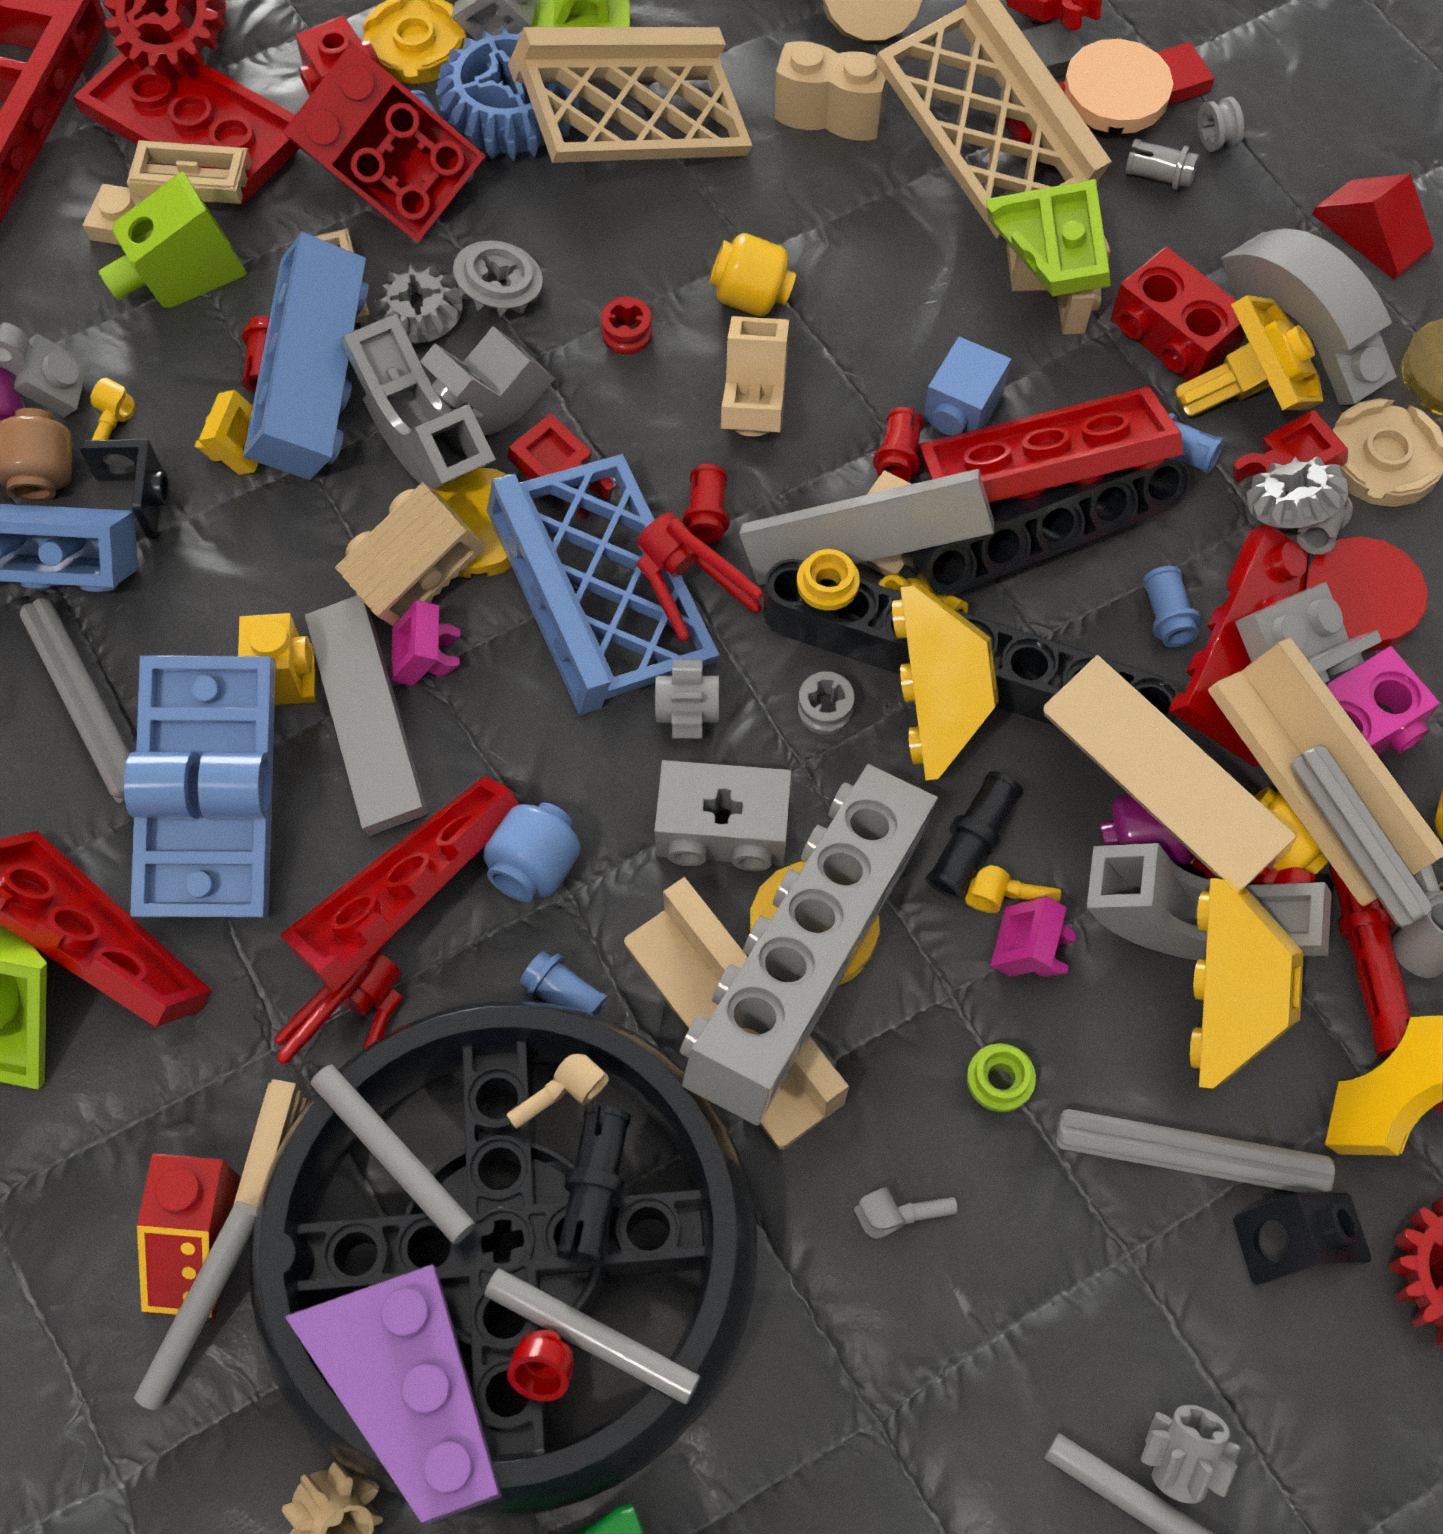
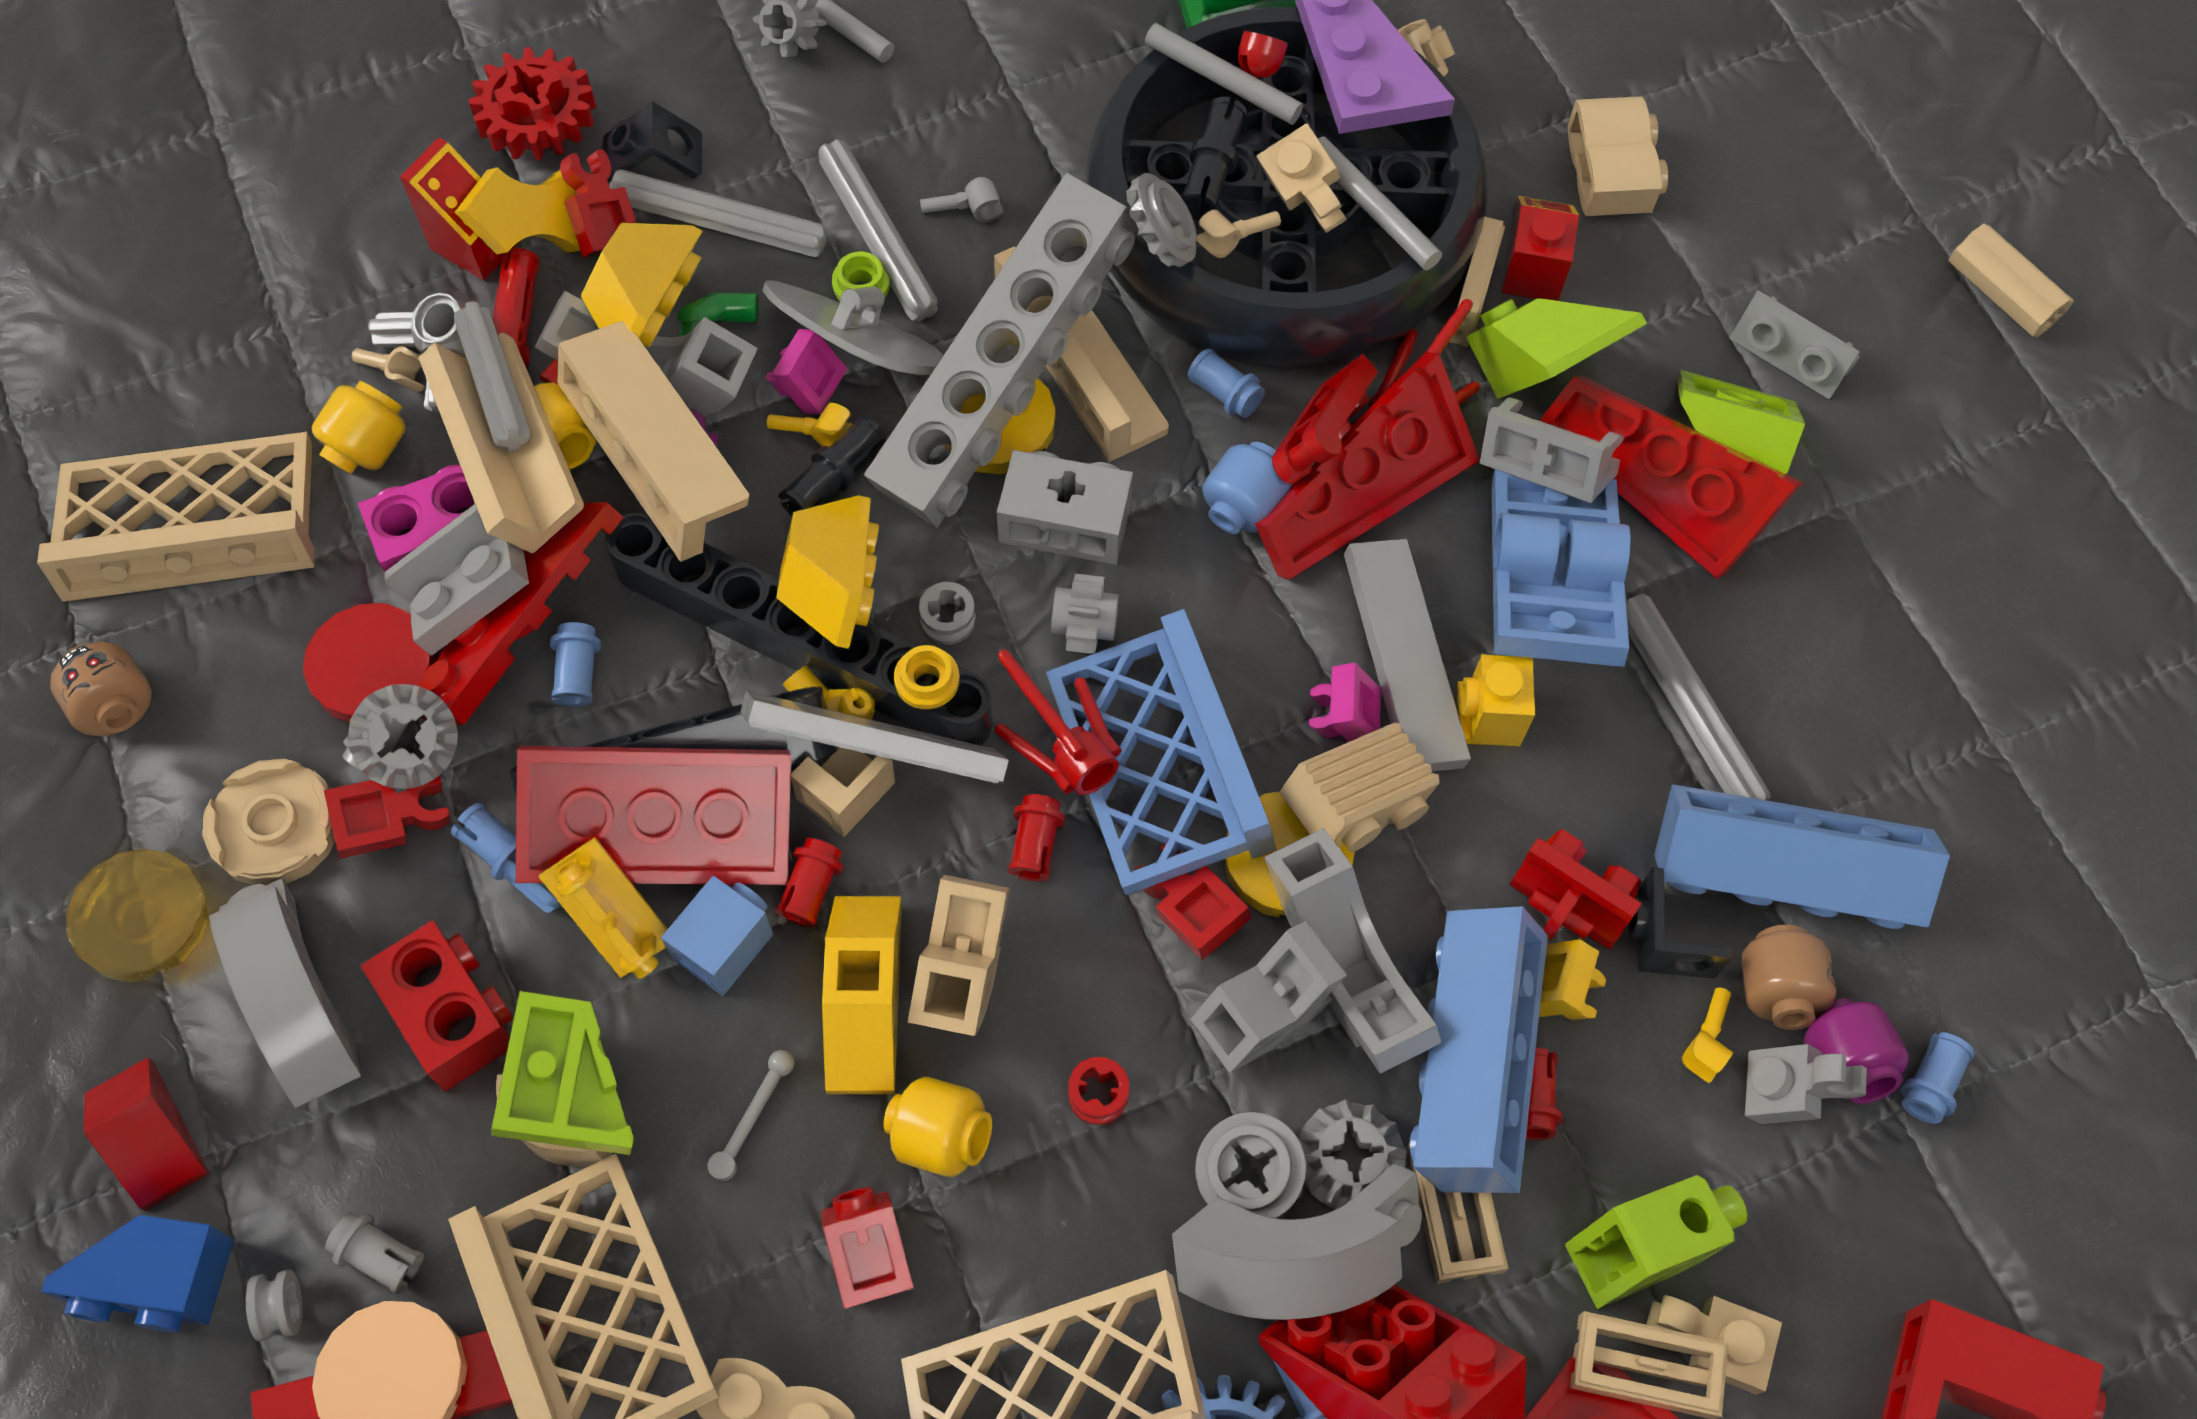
camera: 175 degrees left, 0 degrees up
(77, 1381) = (1616, 156): none -> tan brick
(181, 1048) = (1543, 339): none -> lime slope
(197, 1306) = (1526, 180): light grey bar -> none
(198, 923) = (1548, 453): none -> light grey hinge
(233, 518) = (1573, 893): none -> red hips
(449, 917) = (1324, 421): none -> red plate
(465, 183) = (1299, 1265): none -> light grey arch
(479, 1175) = (1303, 173): none -> tan plate
(644, 1033) = (1162, 220): none -> light grey gear
(797, 203) = (865, 1246): none -> bracket
(836, 370) = (861, 994): none -> yellow slope
(917, 255) = (723, 1164): none -> light grey hinge
(988, 985) = (856, 330): none -> light grey shield
(1001, 1157) = (878, 230): none -> light grey axle
(1075, 376) = (607, 909): none -> yellow hinge
(1162, 1015) = (719, 308): none -> green arm
(1274, 357) = (367, 908): yellow piece -> none
(1321, 129) = (146, 1268): none -> blue slope
(1330, 1109) = (596, 207): none -> red plate

